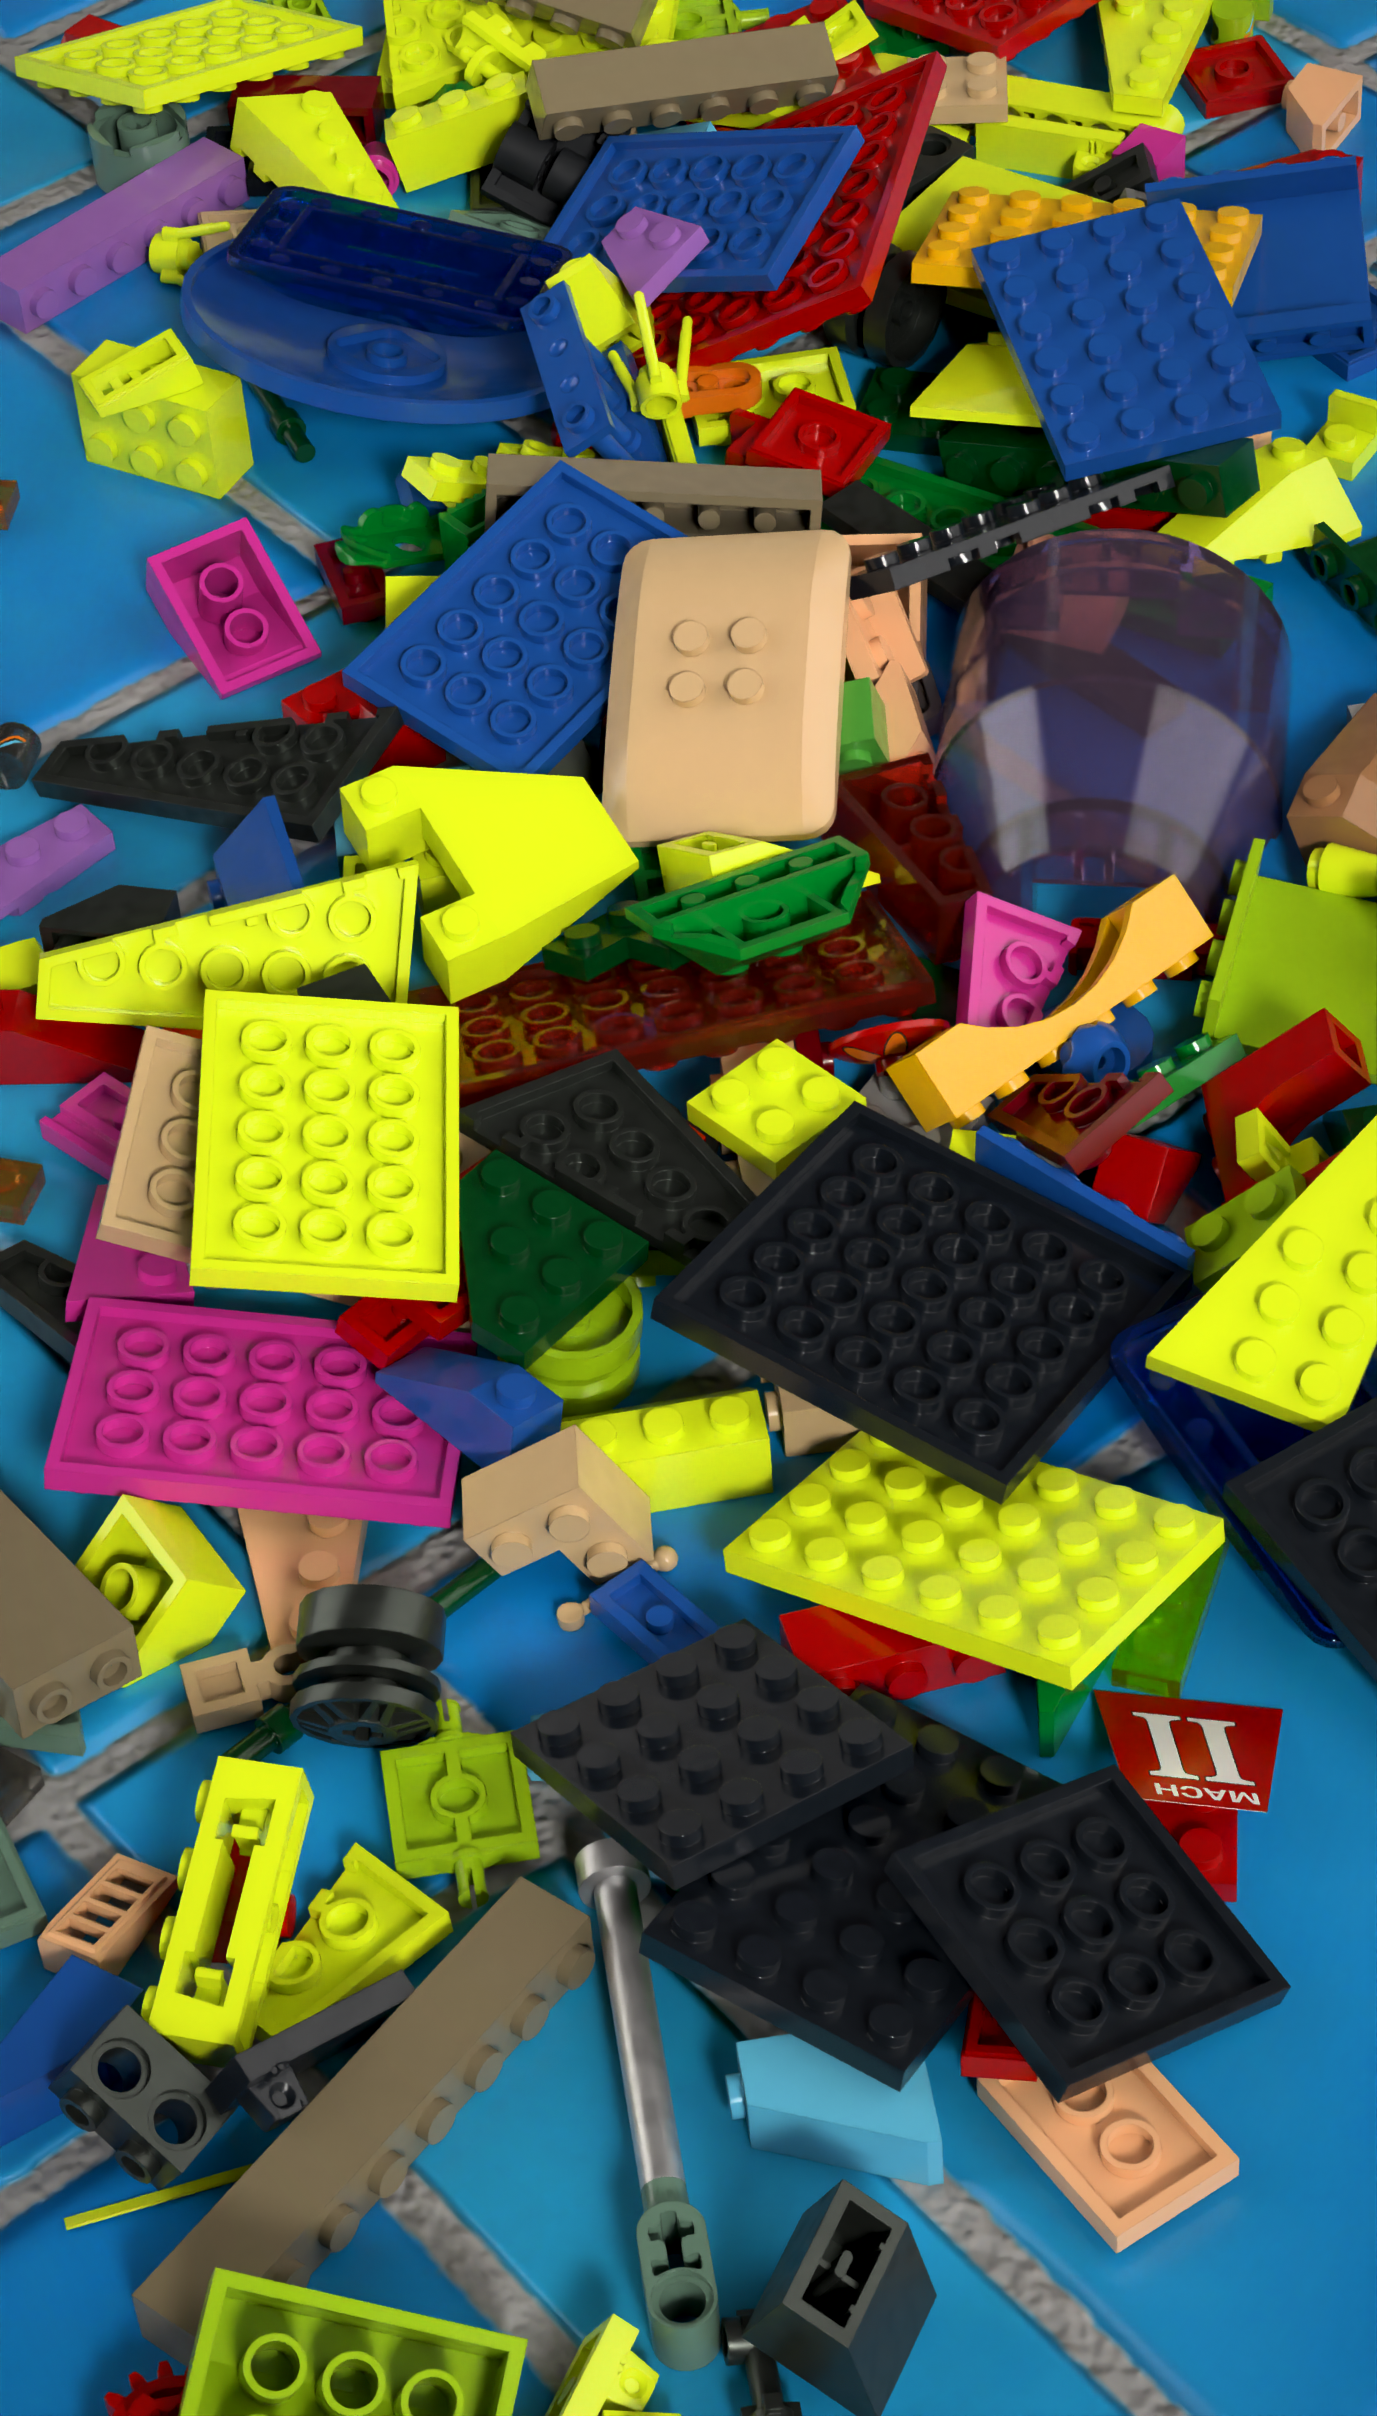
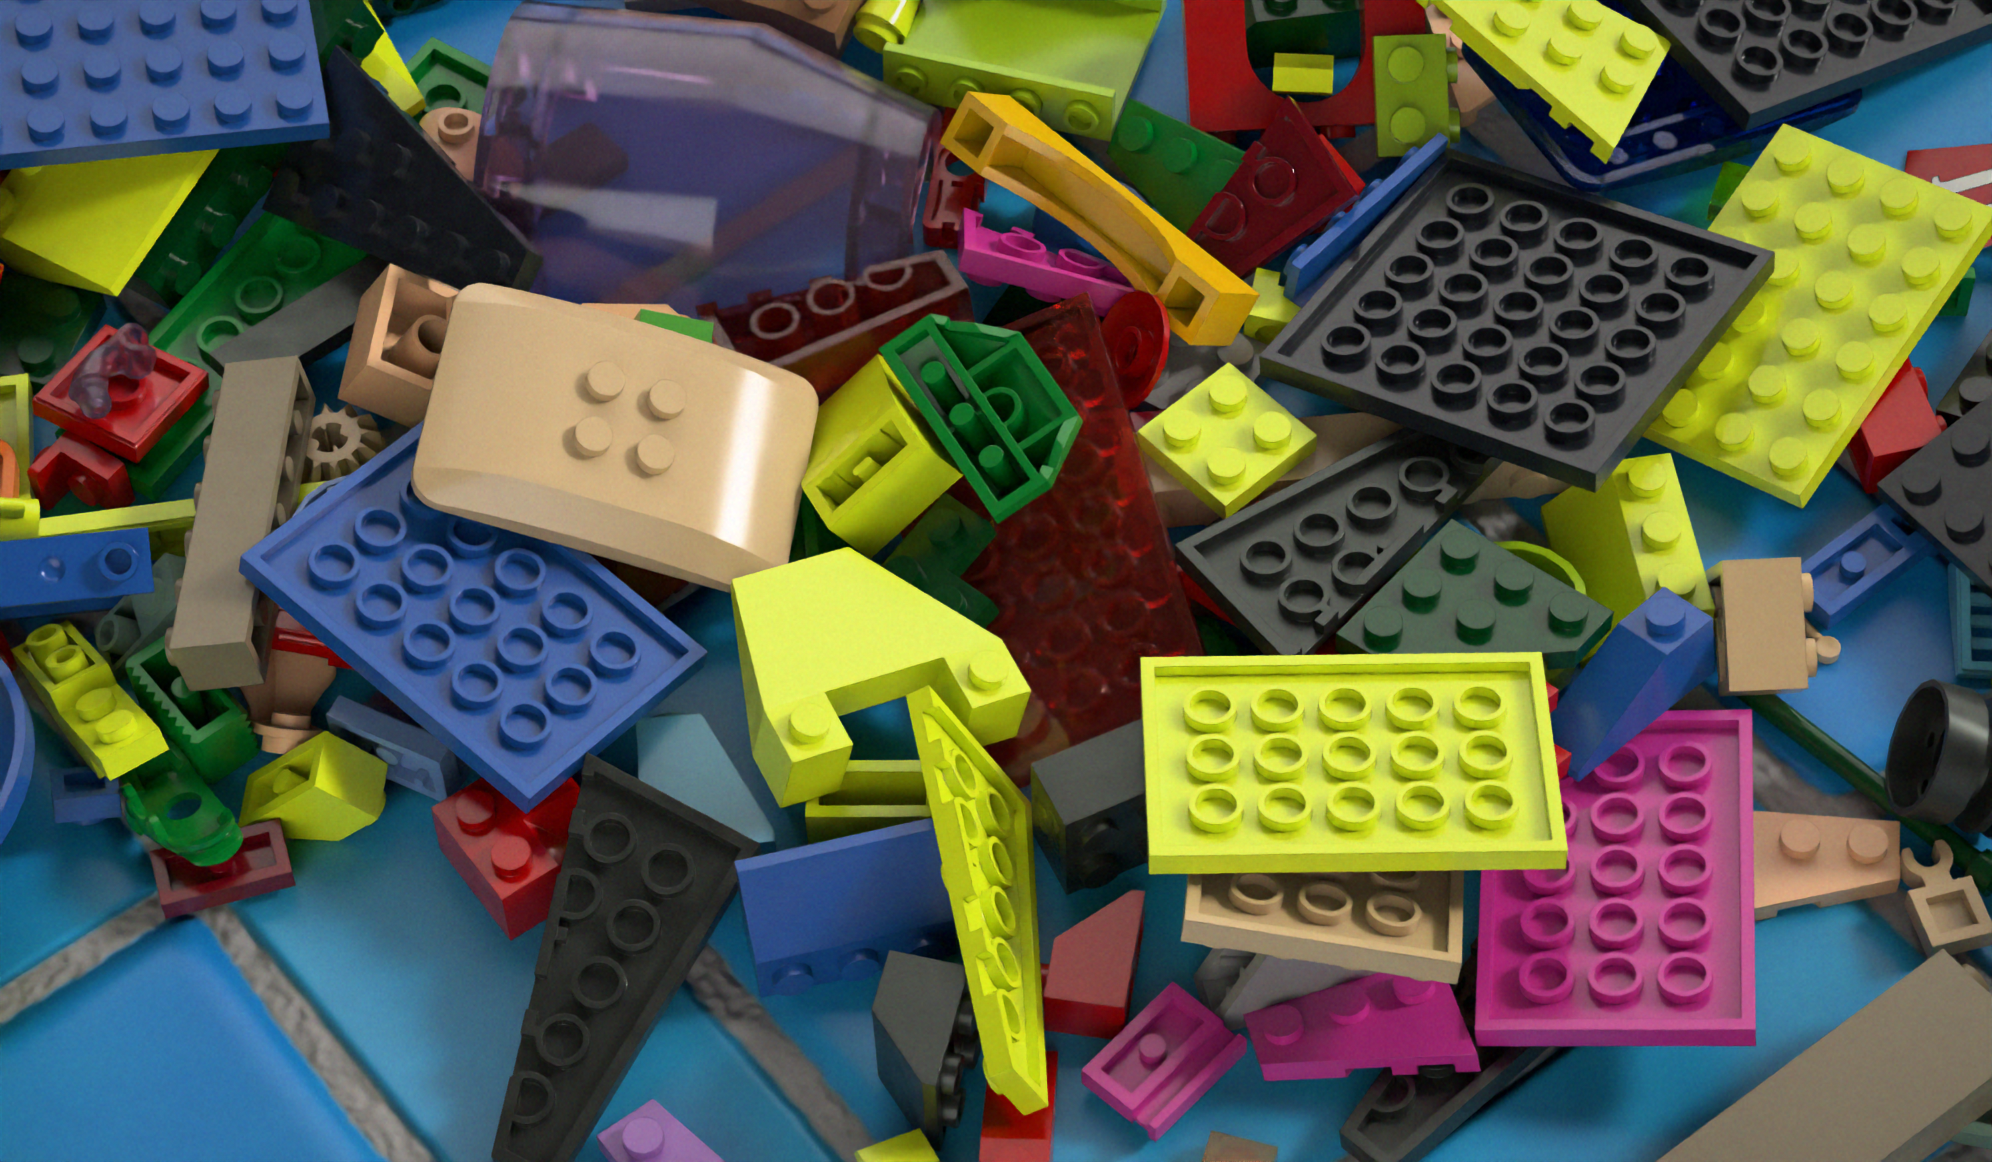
camera: 90 degrees left, 10 degrees up
(161, 1579) = (1826, 966): neon yellow slope -> none
(229, 609) = (268, 991): dark pink slope -> none
(813, 406) = (124, 354): none -> piece
(1095, 1052) = (1164, 196): blue plate -> none

